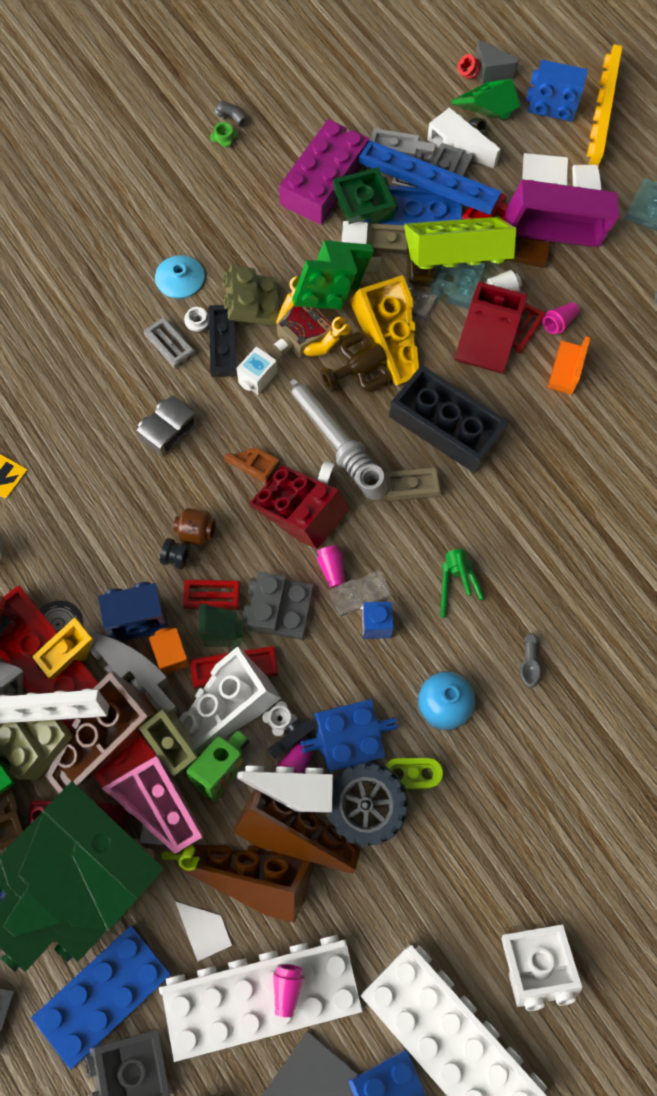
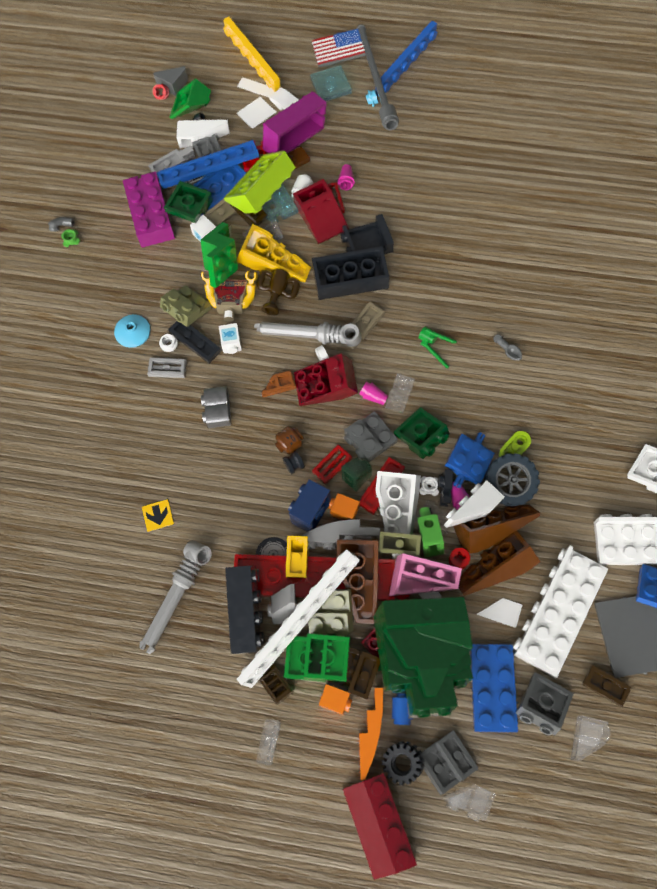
camera: 40 degrees left, 0 degrees up
(184, 858) = (464, 585): lime hand -> none
(224, 829) = (455, 559): none -> red wheel
(287, 988) = (568, 588): dark pink cone -> none
(333, 657) = (422, 433): none -> dark green plate
(377, 620) = (423, 396): blue brick -> none
(446, 700) = (492, 401): dark azure cylinder -> none
(511, 400) = (368, 236): none -> black panel
(556, 90) = (222, 66): blue brick -> none
(568, 366) = (375, 196): orange panel -> none
(573, 144) = (255, 87): none -> white sticker

